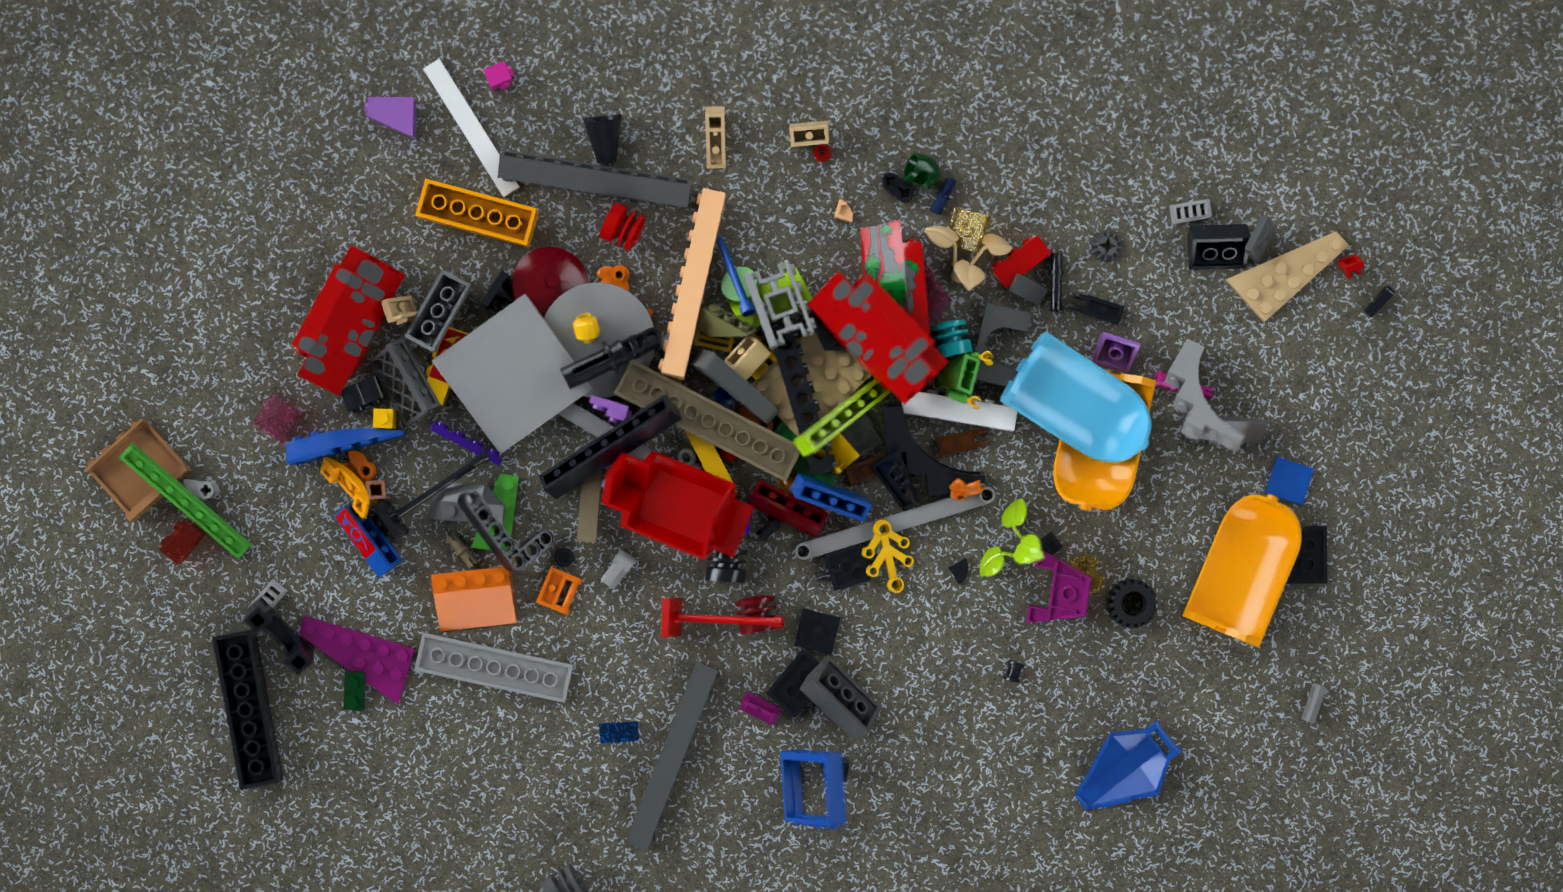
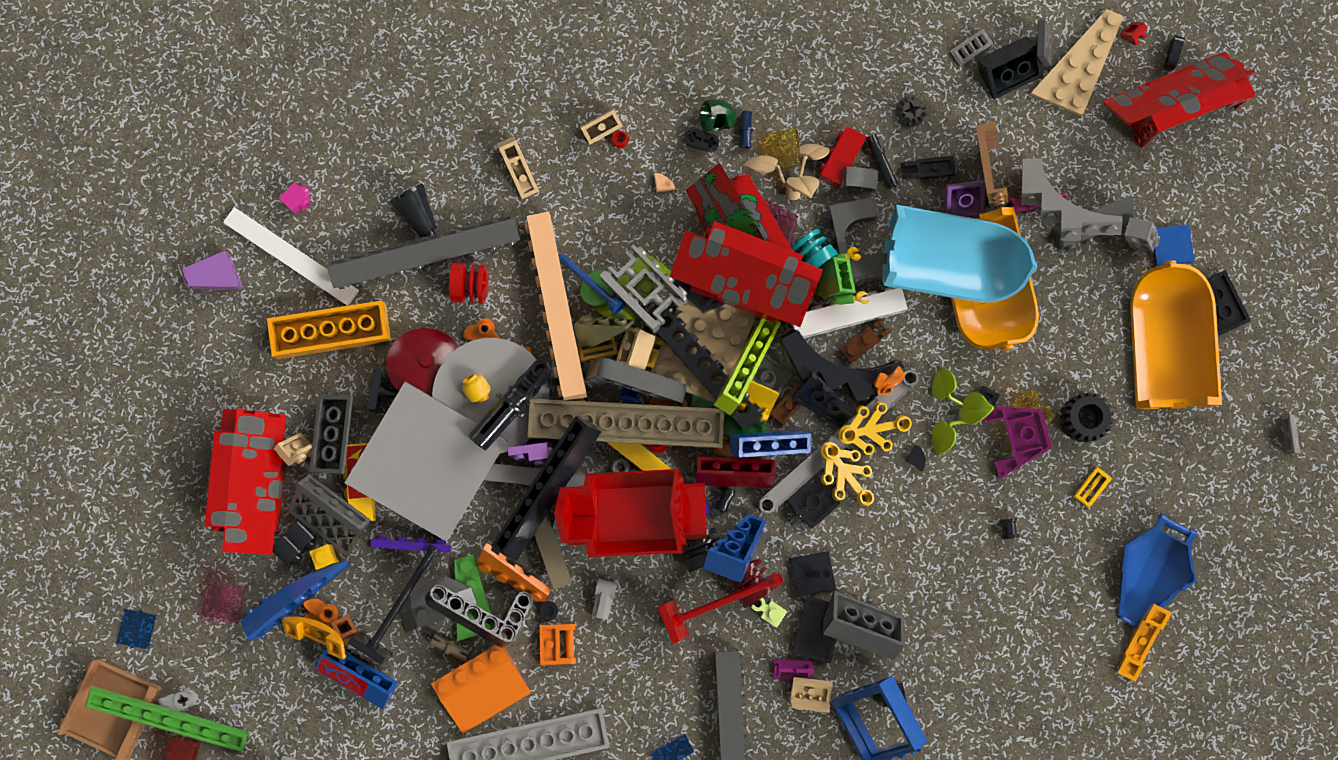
camera: 25 degrees left, 5 degrees down
(190, 407) = (136, 629): none -> clear blue piece
(545, 510) = (511, 574): none -> orange wing
(756, 579) = (736, 550): none -> blue wedge
(763, 649) = (770, 612): none -> yellowish green plate
(765, 737) = (811, 694): none -> tan bracket
(930, 525) = (871, 428): none -> yellow plant
(1085, 825) = (1142, 640): none -> light orange slope
(1122, 661) = (1082, 499): none -> yellow tile
(1155, 307) = (988, 140): none -> medium nougat panel
(1262, 459) = (1142, 235): none -> light grey brick
(1363, 347) = (1183, 96): none -> red panel

